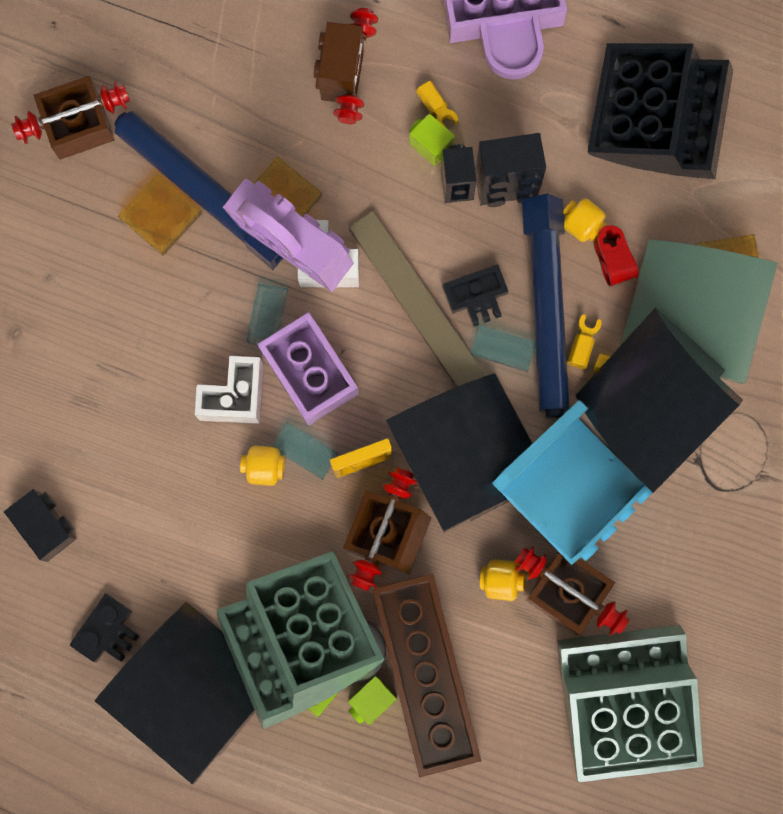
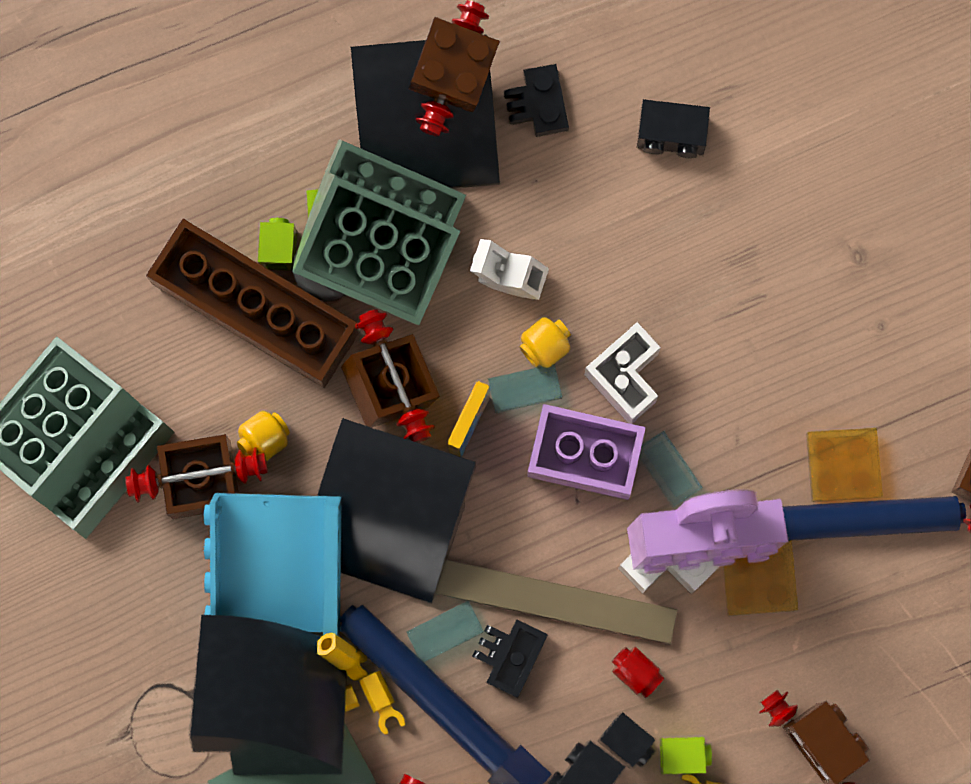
camera: 135 degrees right, 0 degrees up
(137, 696) = (453, 66): none -> reddish brown brick
(239, 532) = (507, 271): none -> white brick
(409, 212) = (637, 671): none -> red brick
(584, 388) = (342, 655): none -> yellow bar

